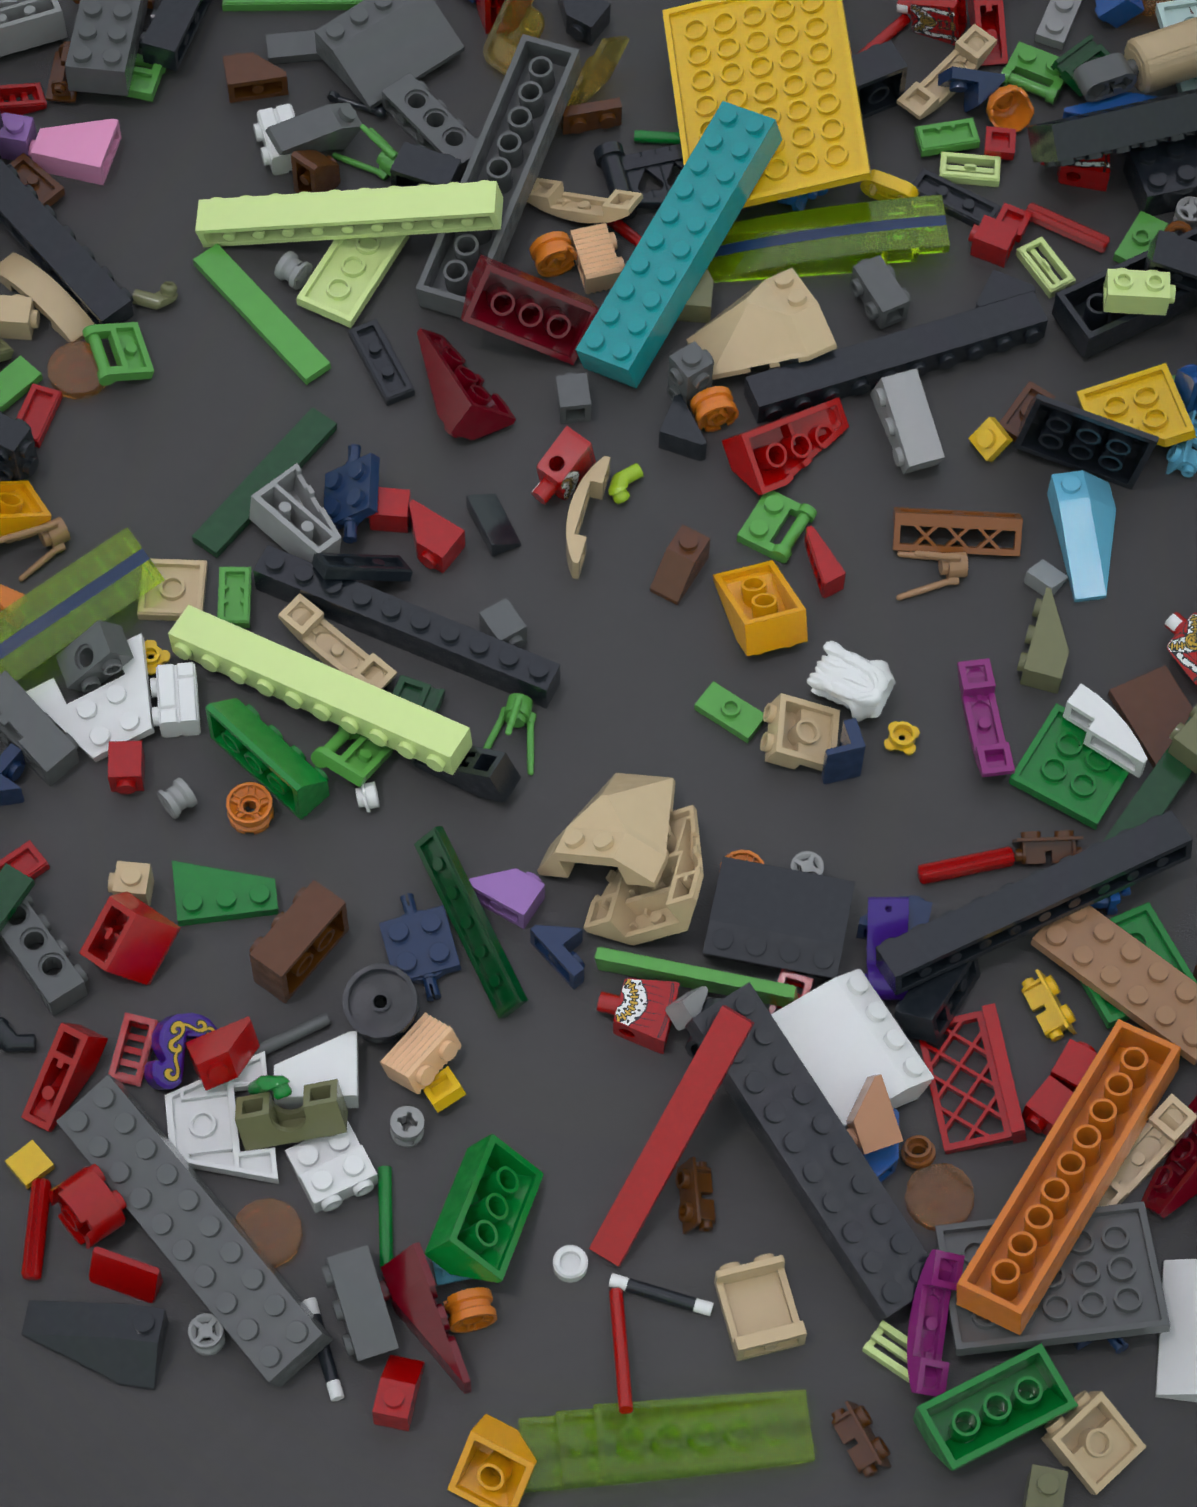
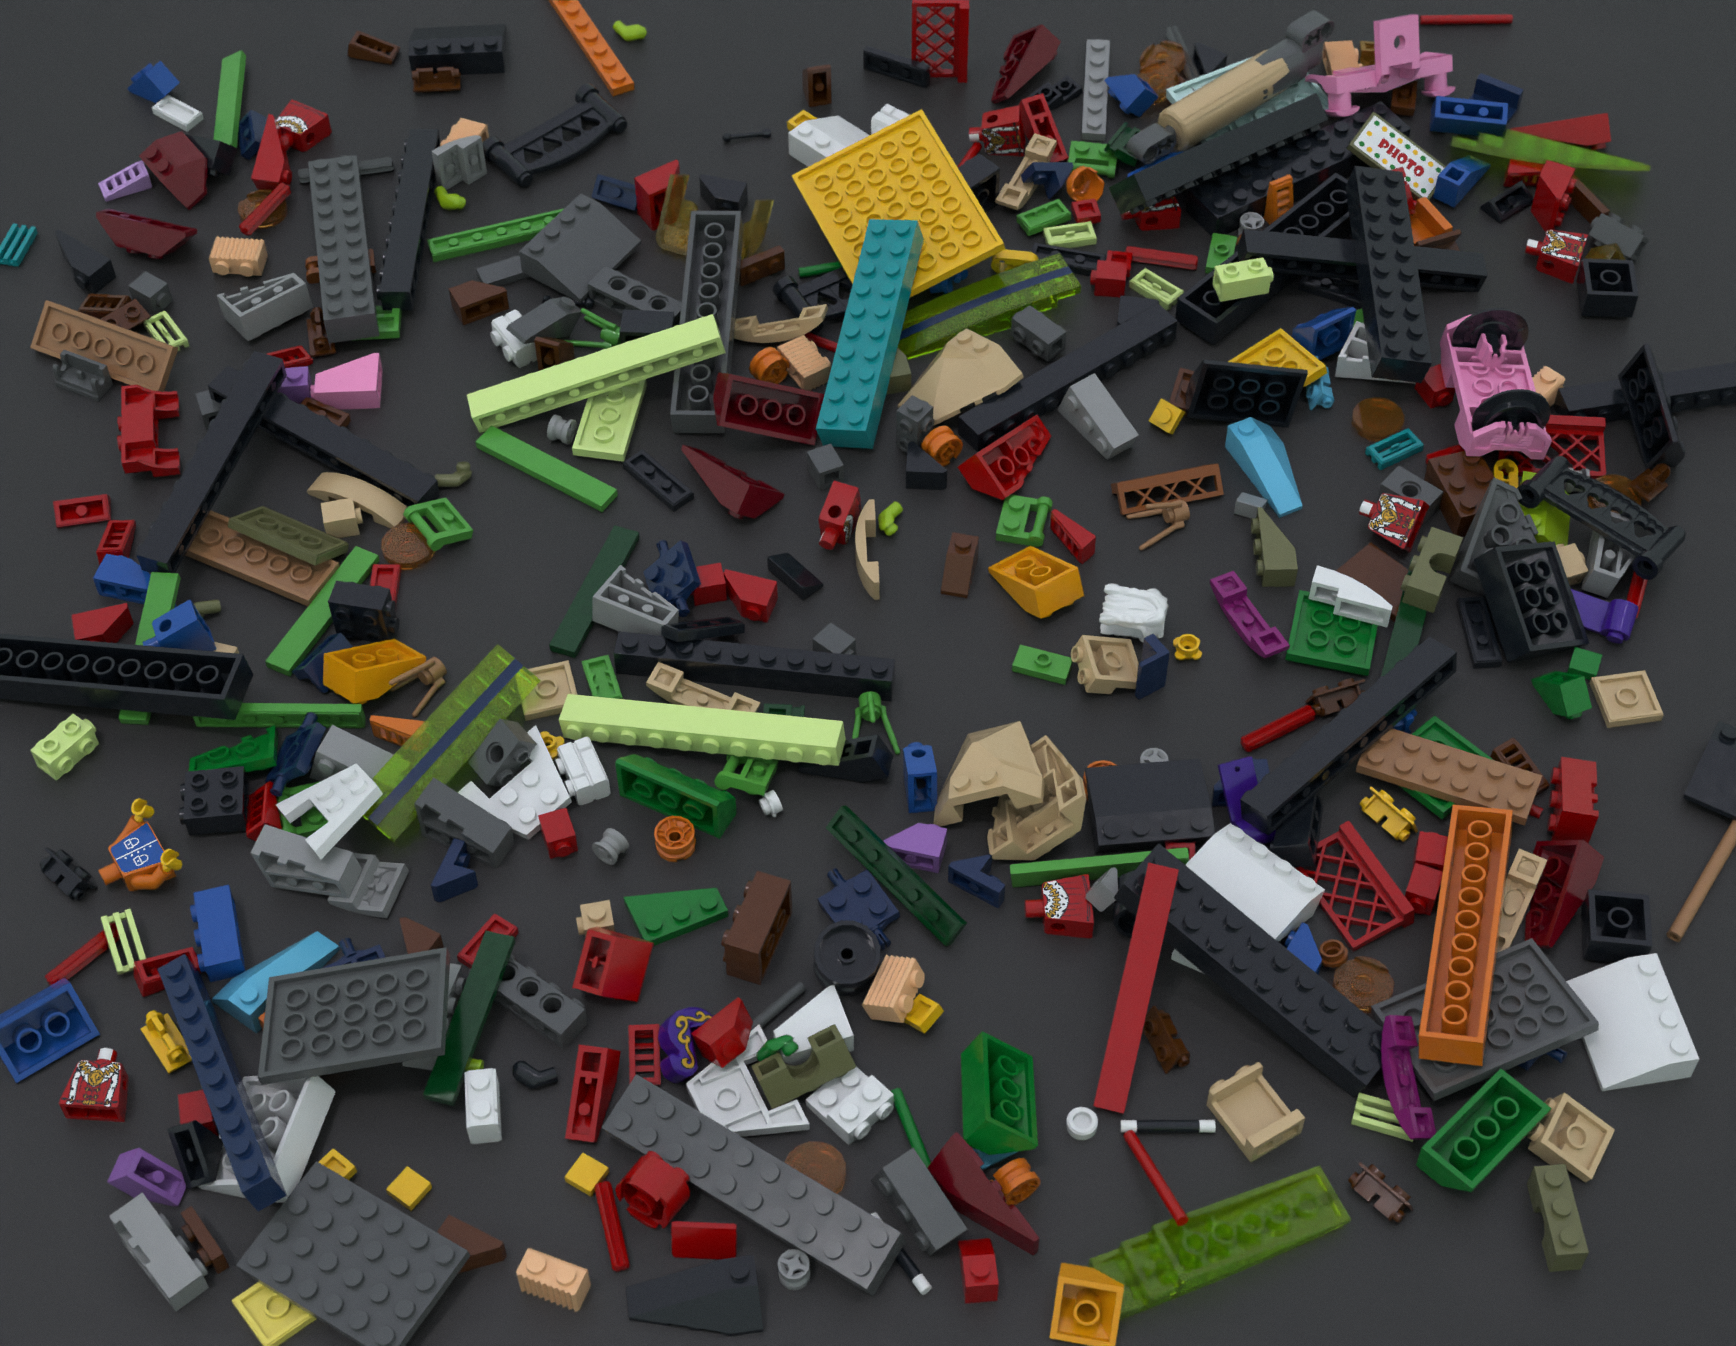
camera: 15 degrees left, 10 degrees down
(407, 1134) = (897, 1057): light grey wheel -> none
(539, 801) = (920, 764): none -> blue torso
(872, 1118) = (1293, 926): nougat slope -> none

